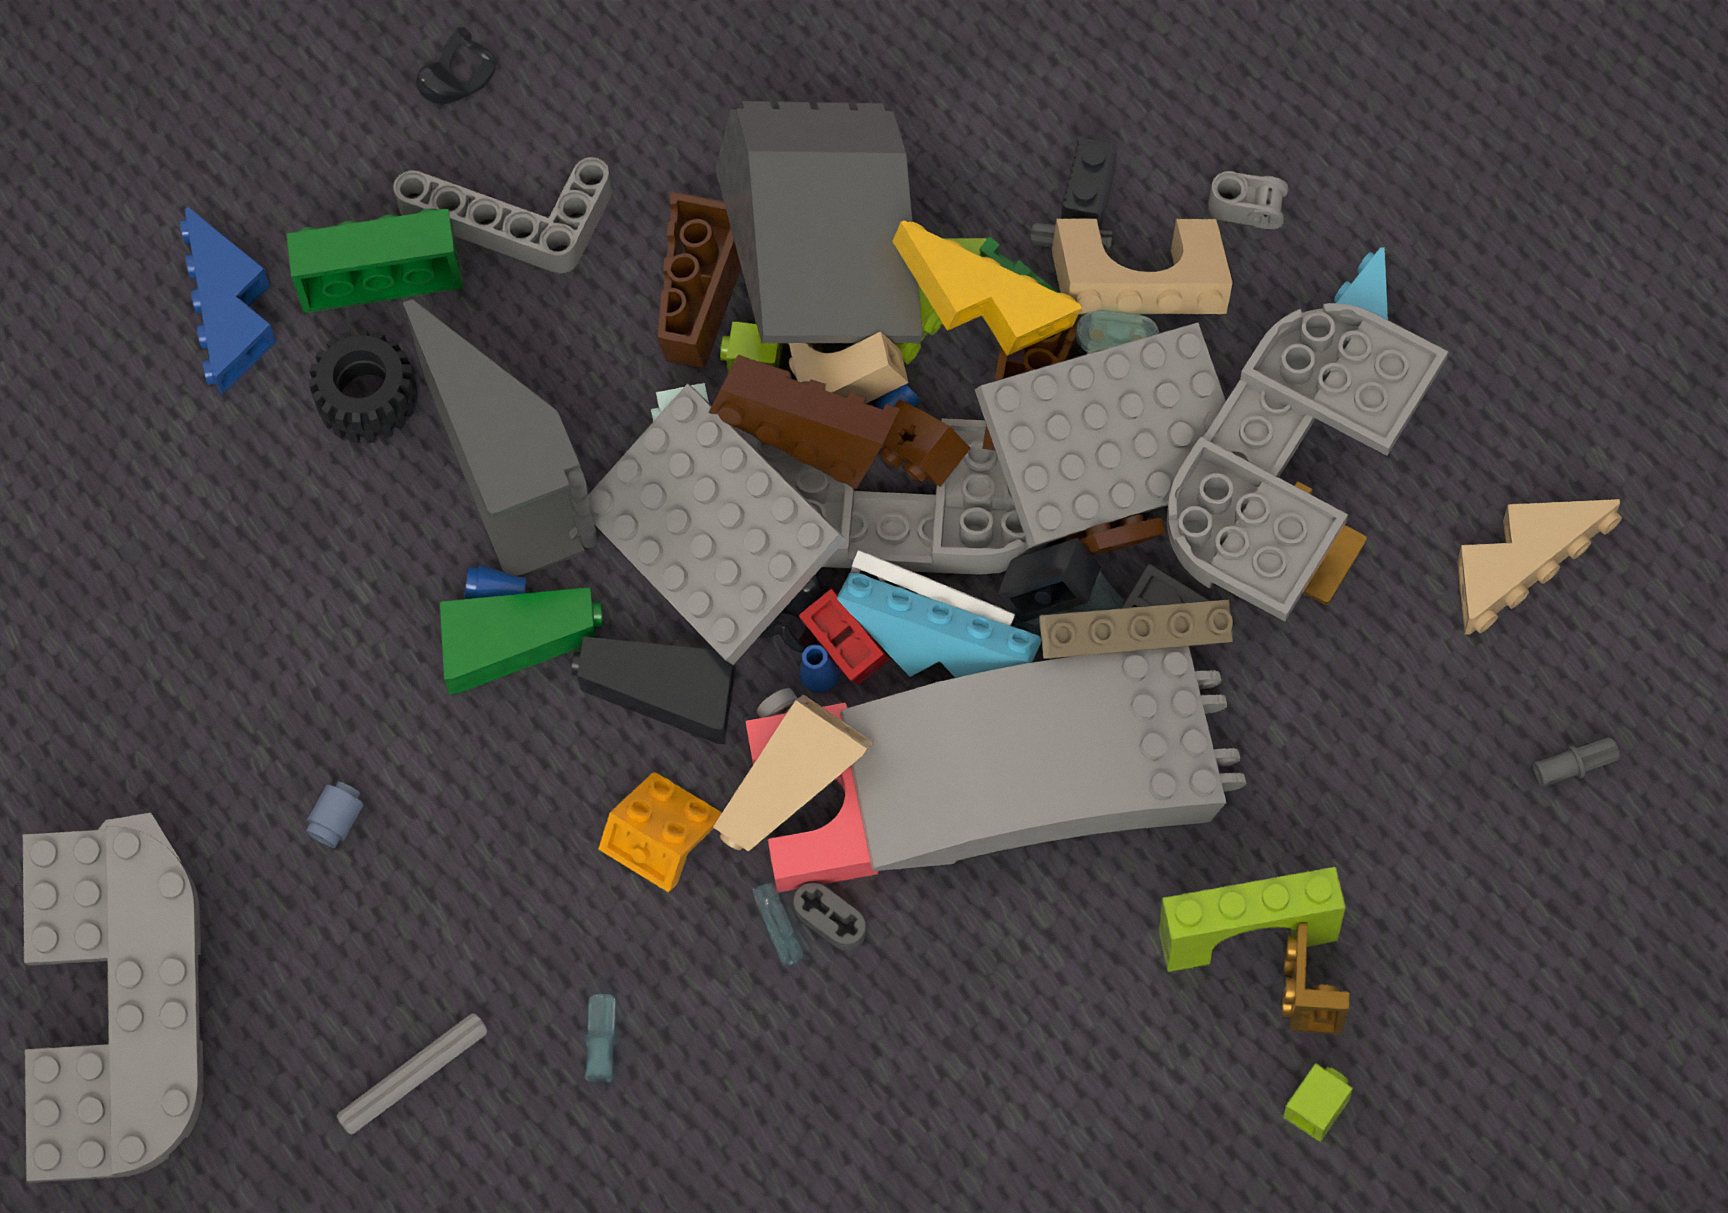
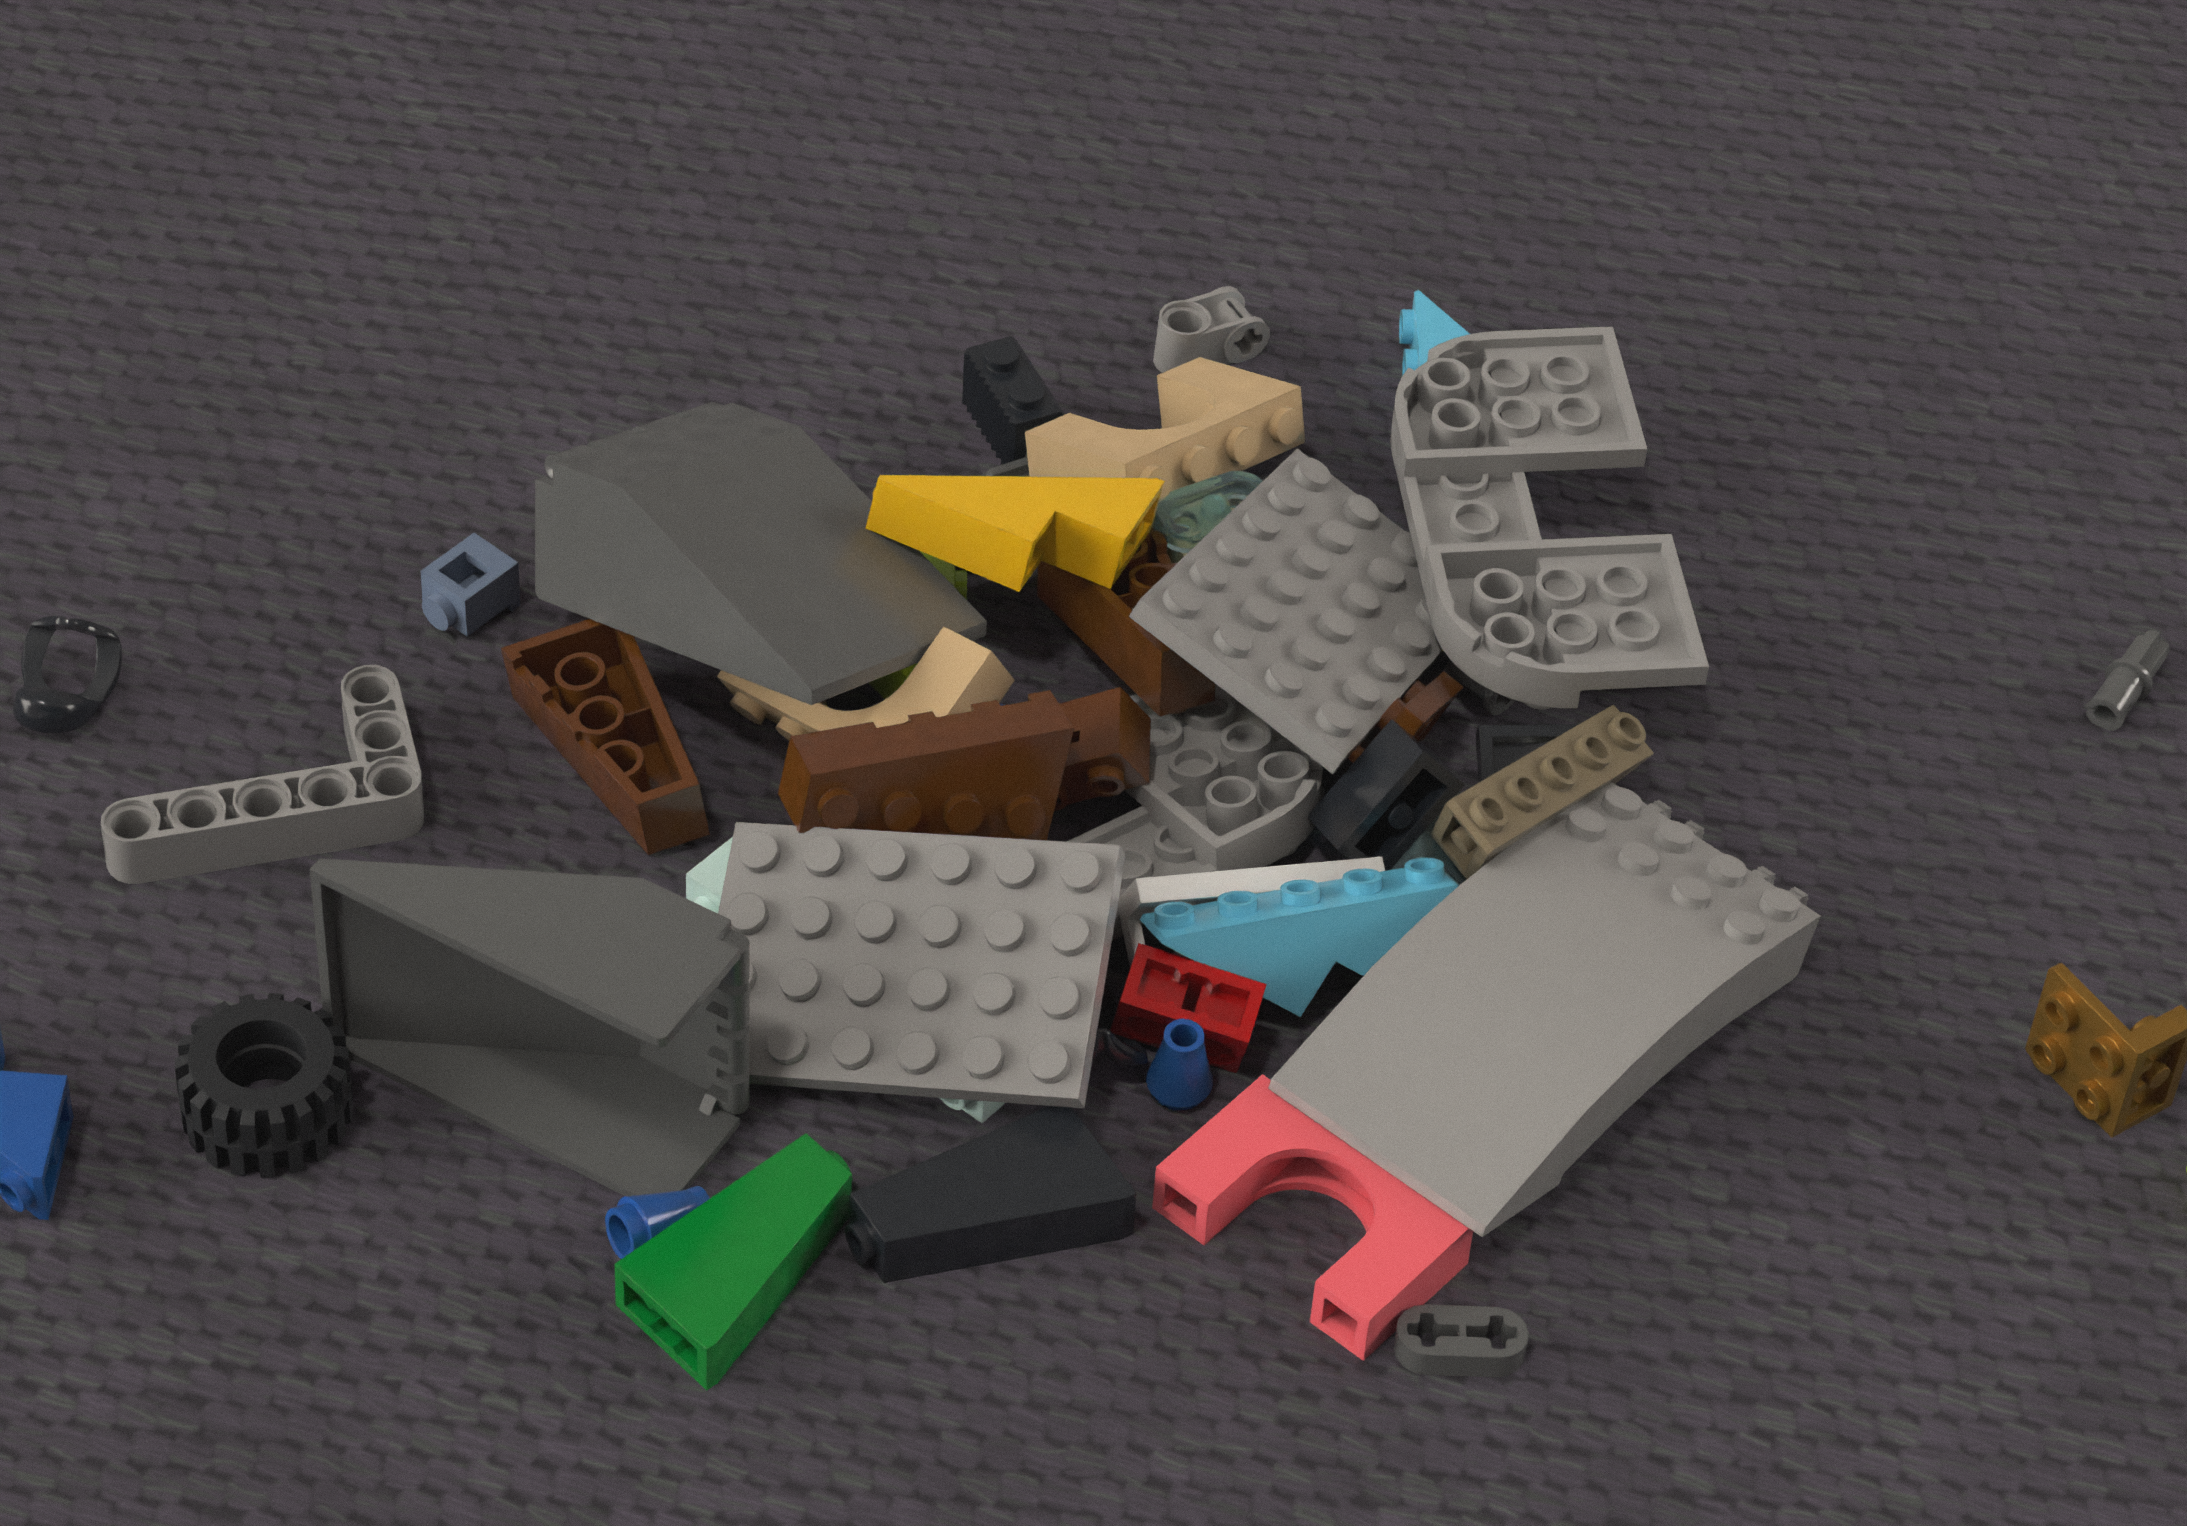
camera: 45 degrees left, 20 degrees down
(374, 260) = (154, 926): green brick -> none
(657, 830) = (1153, 1375): light orange bracket -> none
(697, 133) = (461, 593): none -> sand blue brick
(745, 341) = (749, 775): lime brick -> none
(777, 703) = (1172, 1132): light grey tile -> none
(778, 924) = (1405, 1389): clear light blue axle -> none
(795, 765) = (1279, 1181): tan slope -> none
(1202, 919) = (1942, 1025): lime arch -> none
(1536, 542) = (1859, 512): tan slope -> none

